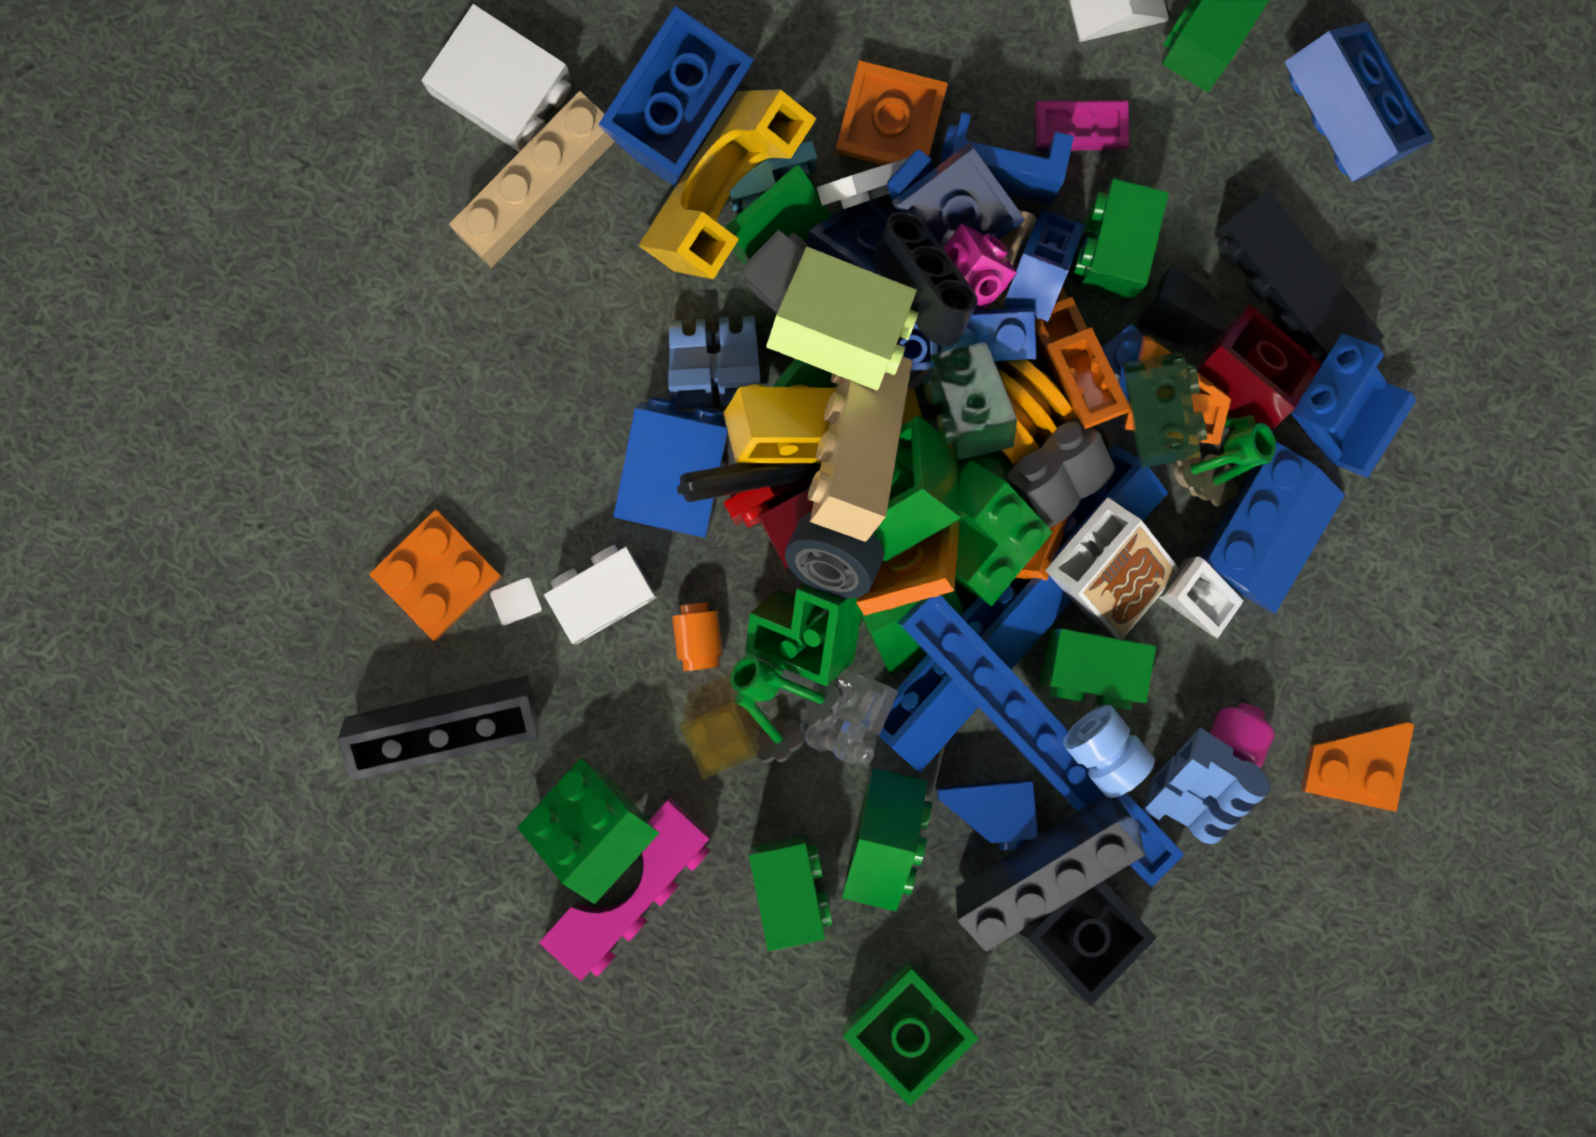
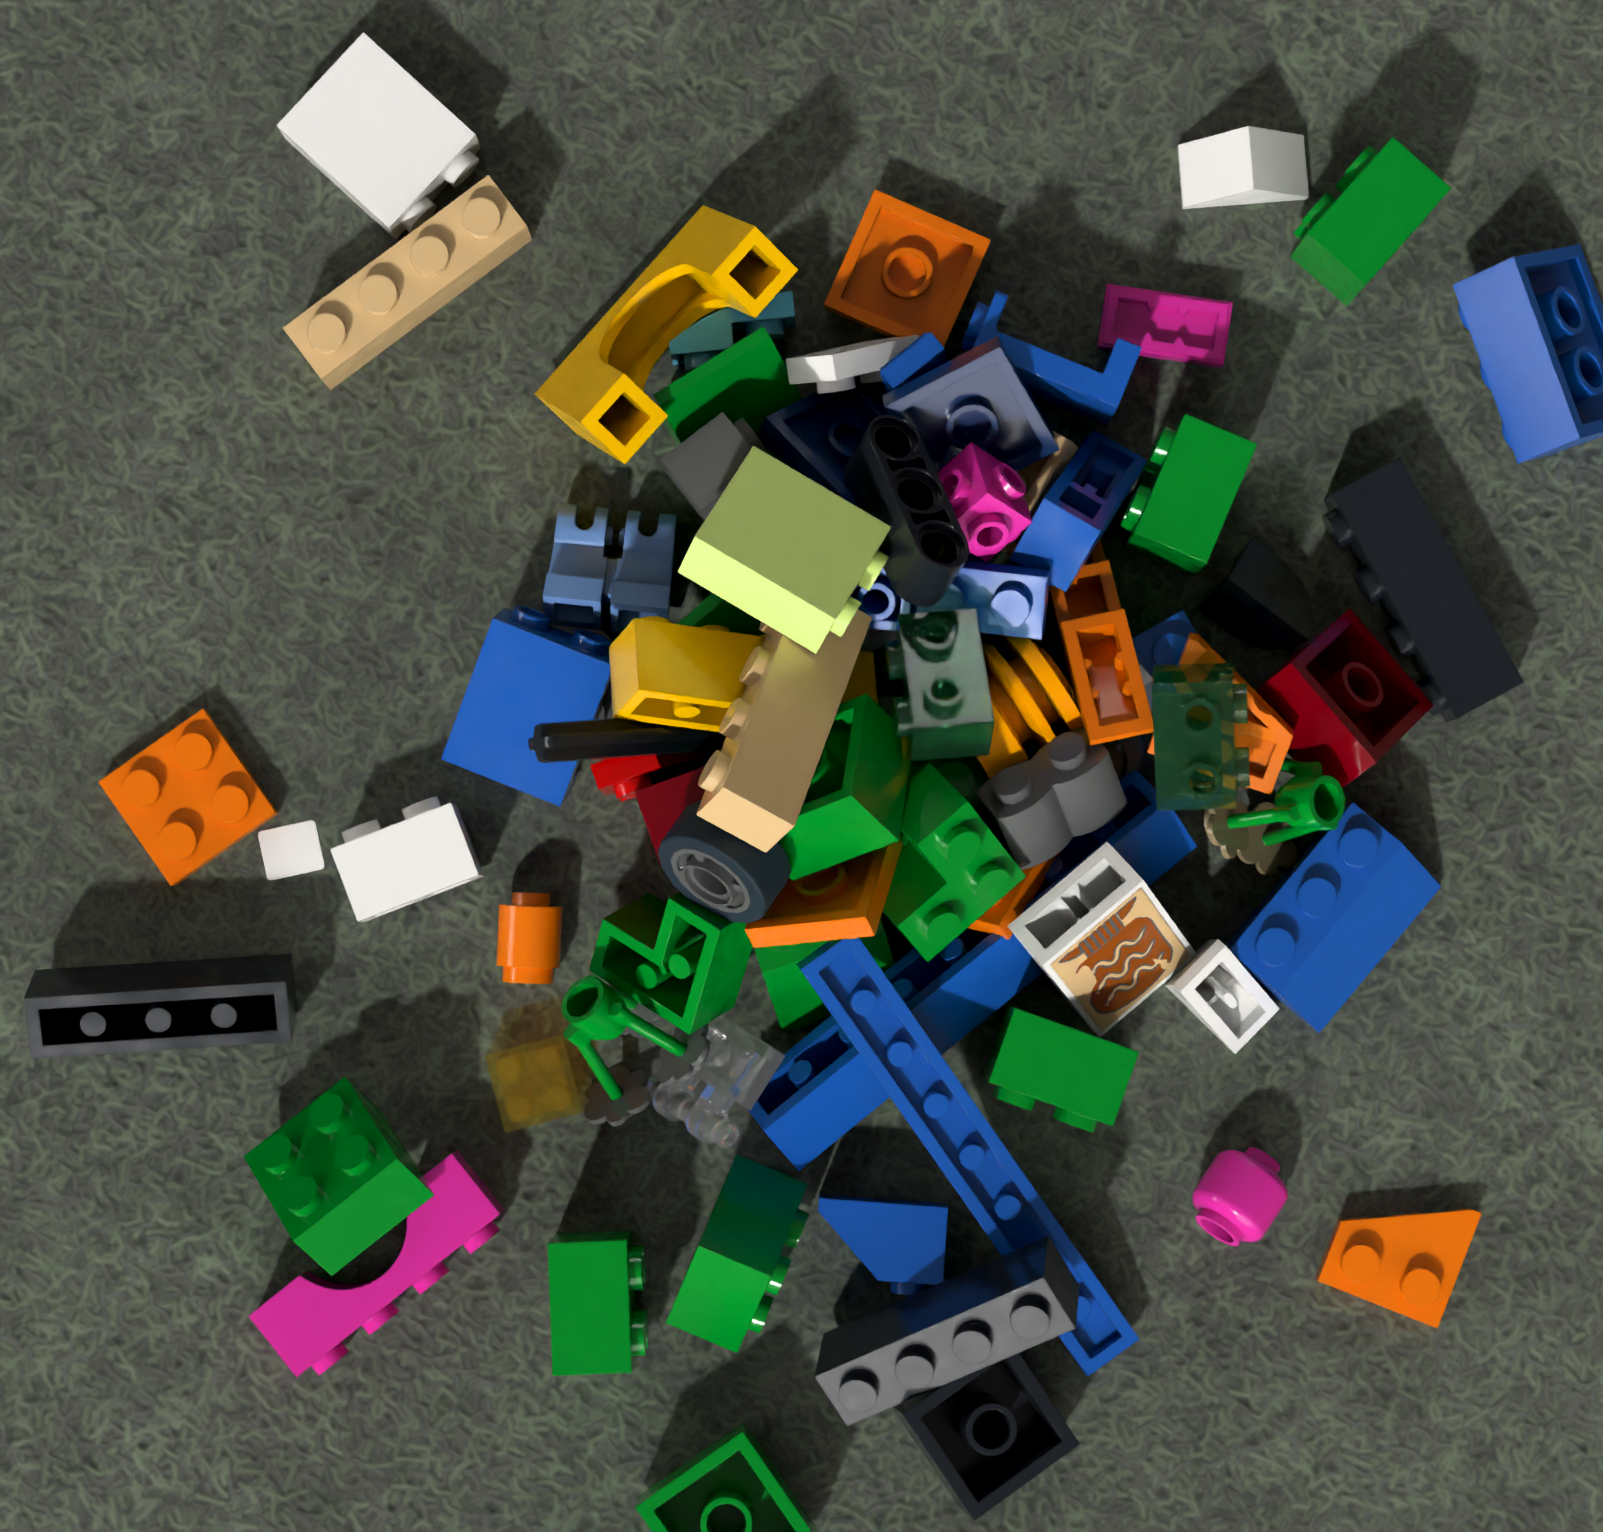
camera: 10 degrees right, 0 degrees up
(675, 95) = (616, 201): blue slope -> none
(1113, 756) = (1057, 1190): light blue wheel -> none
(1206, 788) = (1181, 1254): medium blue legs -> none
(1352, 407) = (1464, 771): blue panel -> none

